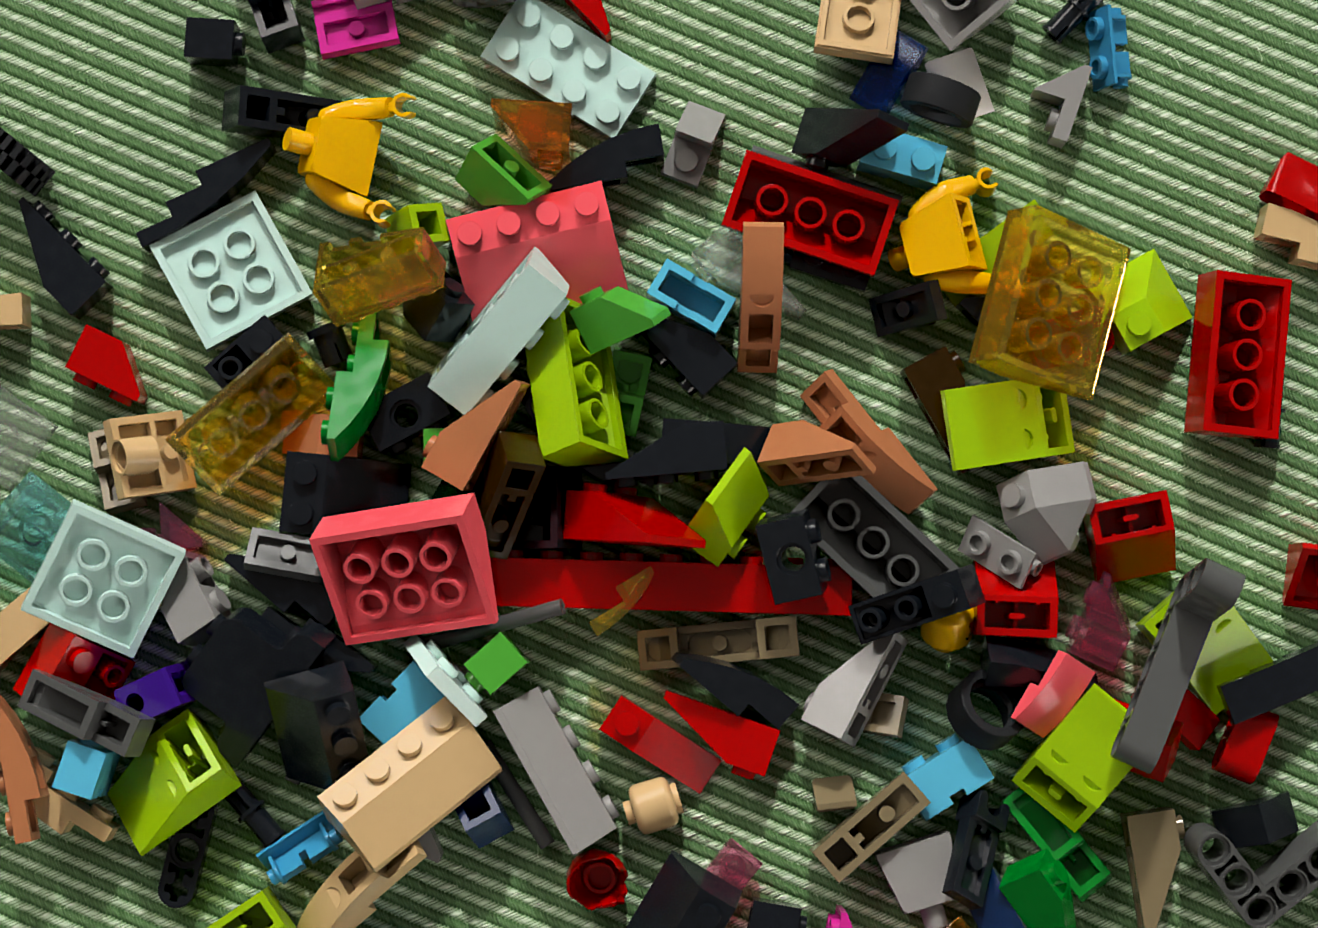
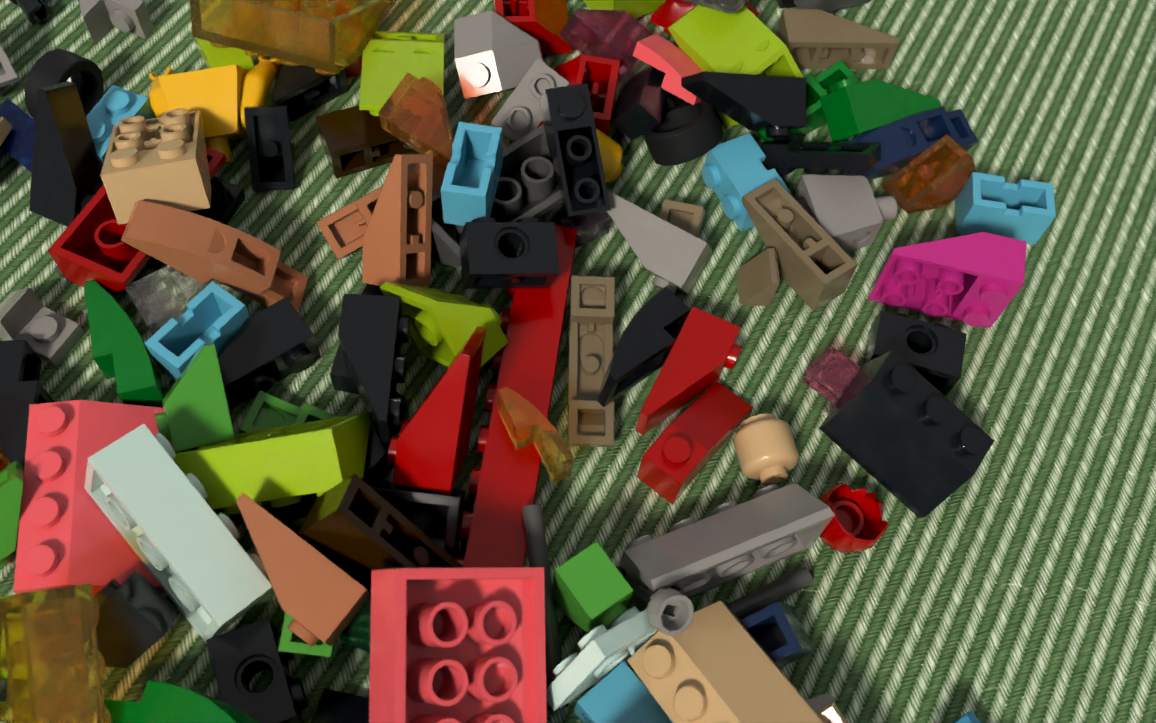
camera: 90 degrees left, 25 degrees down
(475, 722) = (660, 606): none -> light grey hinge
(677, 231) = (121, 350): none -> green slope
(844, 223) = (157, 163): none -> tan slope
(864, 512) = (472, 173): none -> medium azure brick
(925, 454) = (419, 118): none -> clear orange slope
(1018, 783) = (754, 101): none -> black slope

